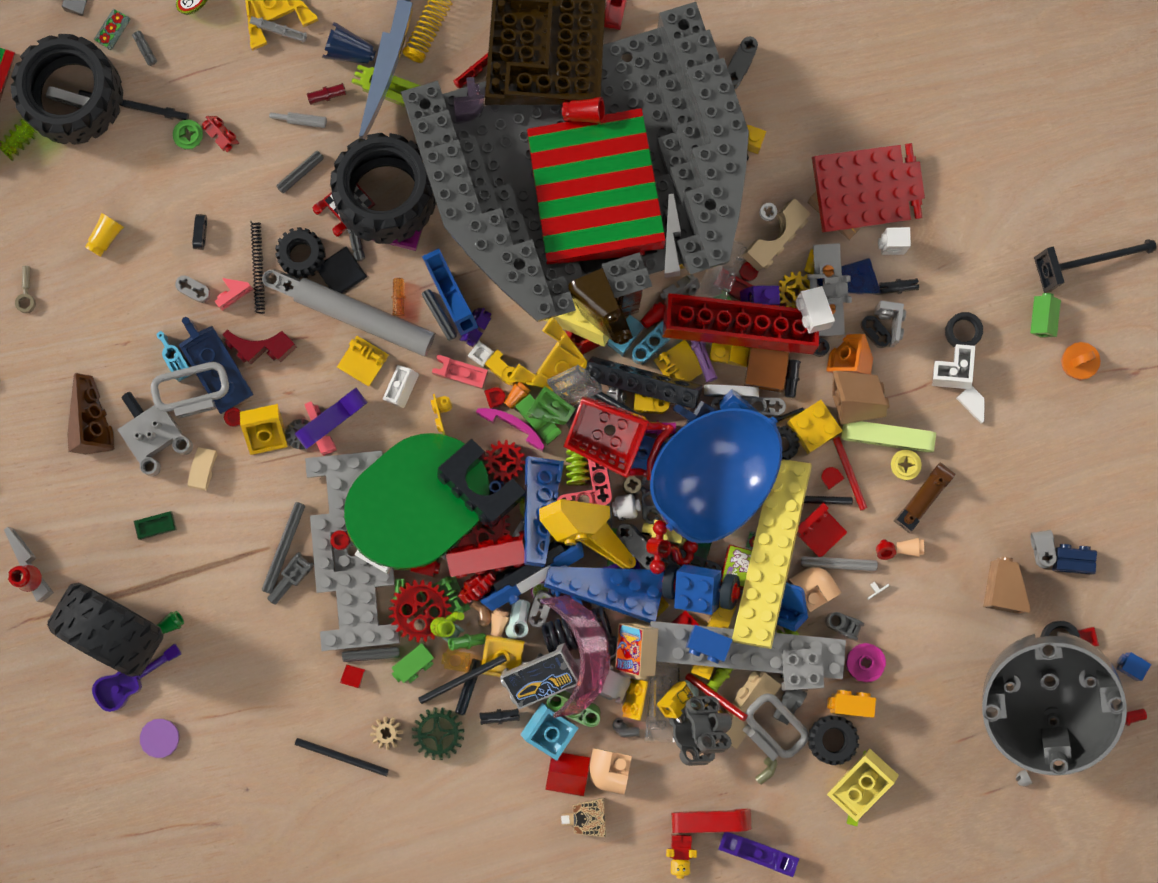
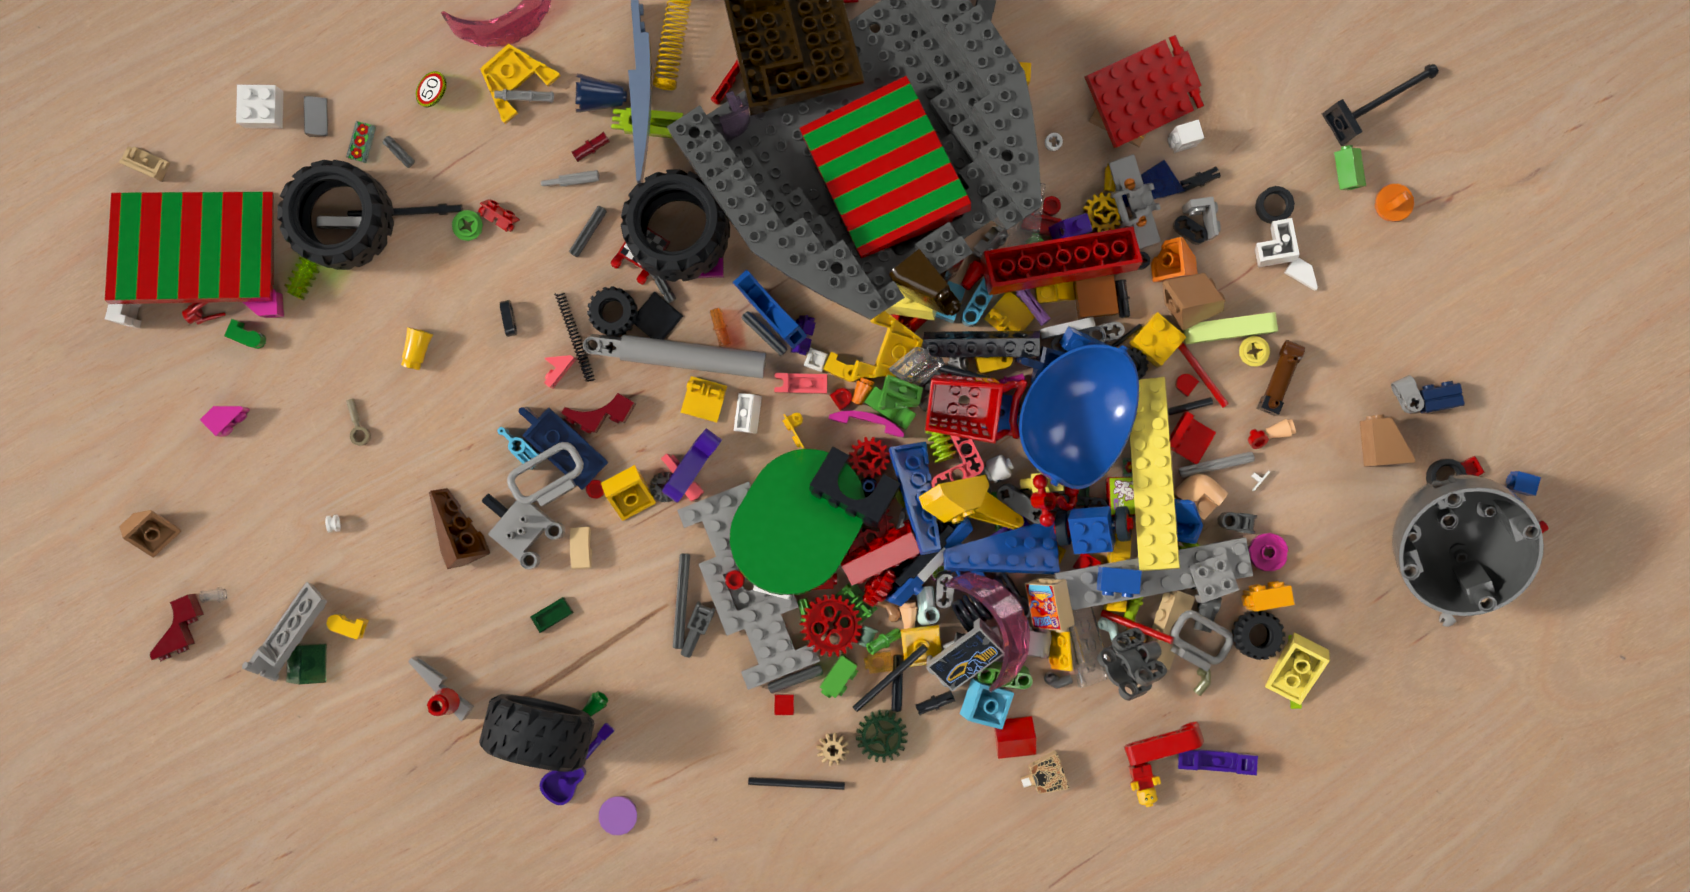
camera: 15 degrees left, 5 degrees up
(190, 292) = (517, 380): light grey beam -> none
(444, 627) = (859, 634): lime piece -> none
(584, 110) = (851, 94): red plant -> none
(609, 770) = (1054, 723): light nougat brick -> none
(629, 490) = (997, 452): dark tan bush -> none
(645, 508) = (1018, 464): dark grey piece -> none
(673, 230) = (974, 187): light grey slope -> none
(675, 700) = (1099, 641): yellow leg -> none
(791, 218) = (1078, 143): tan arch -> none
(815, 309) = (1130, 227): white brick -> none

